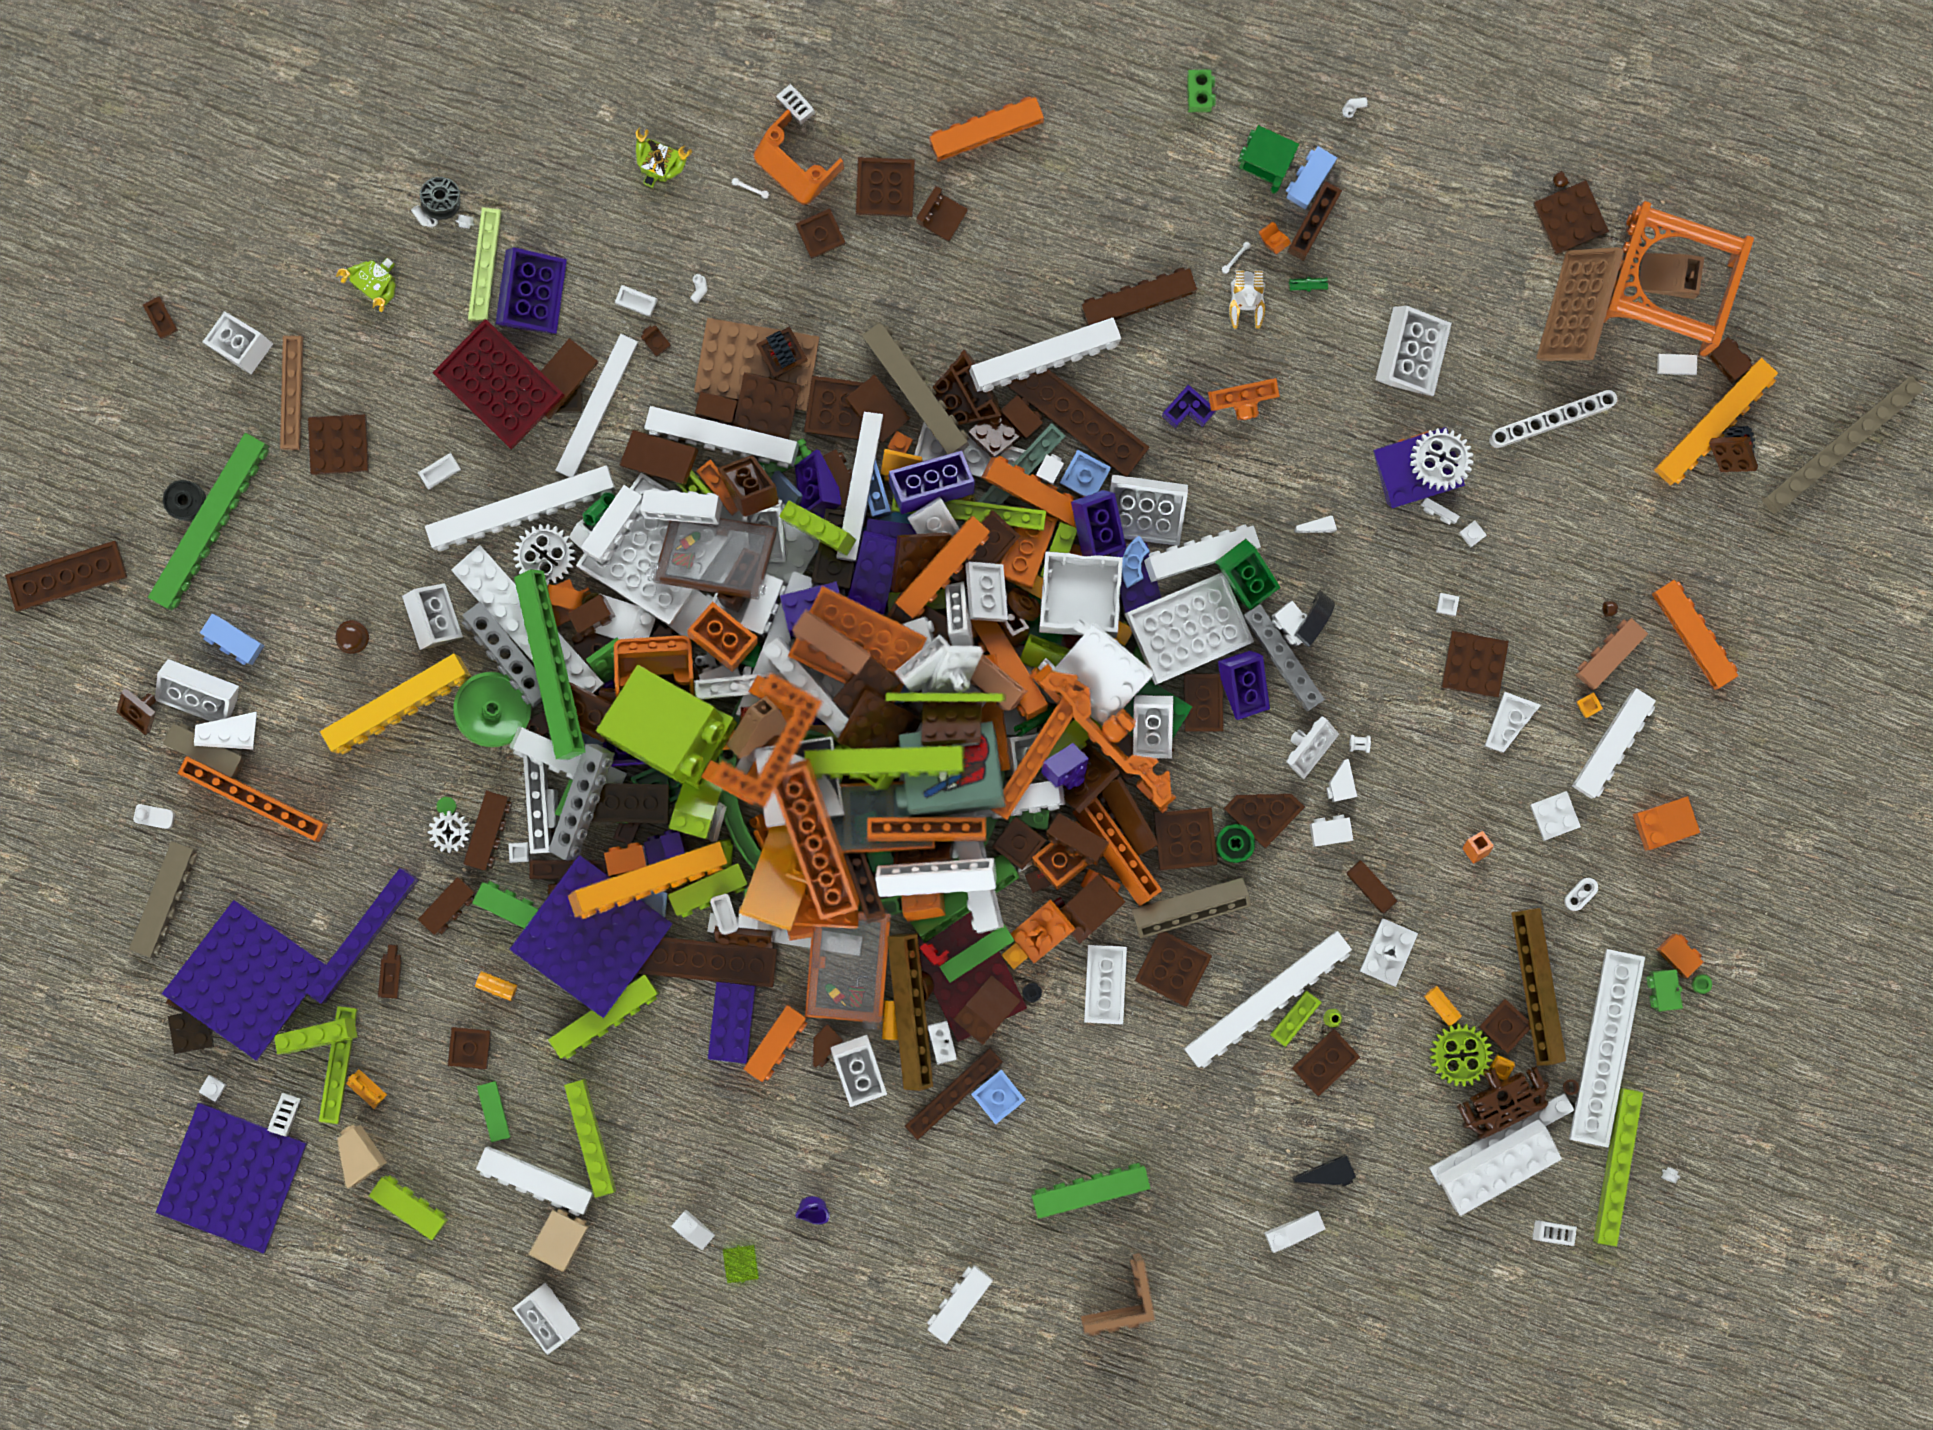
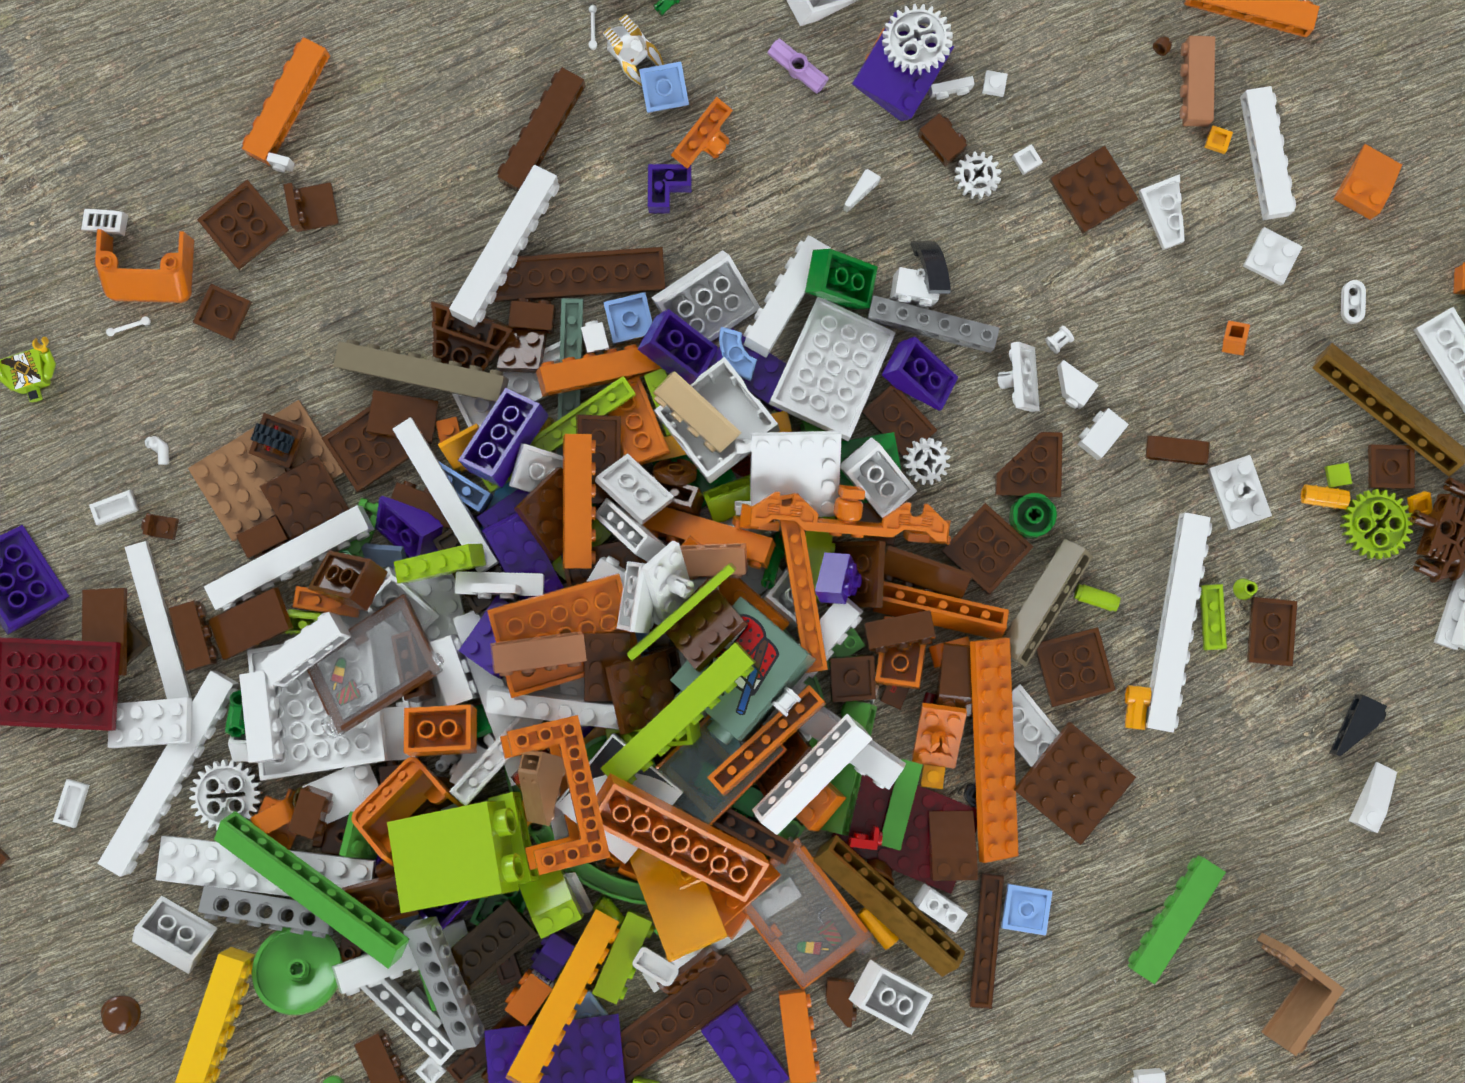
camera: 45 degrees left, 0 degrees up
(538, 466) = (152, 723): none -> white plate
(614, 432) = (193, 635): none -> reddish brown brick
(846, 578) = (503, 584): none -> white bracket
(946, 167) = (280, 163): none -> white plate
(961, 814) = (786, 701): none -> white bush
(1070, 576) = (696, 413): none -> tan slope
(1070, 972) = (994, 749): none -> orange plate
(1104, 1043) = (1074, 783): none -> reddish brown plate
(1193, 752) = (924, 452): none -> white gear
(1193, 1028) = (1137, 701): none -> light orange piece
(1229, 936) = (1097, 597): none -> lime piece
(1246, 341) = (664, 87): none -> light blue plate
(1351, 418) = (808, 74): none -> lavender piece
(1402, 540) = (942, 139): none -> reddish brown brick
(1402, 576) = (985, 180): none -> white gear
(1465, 1000) = (1338, 475): none -> lime tile

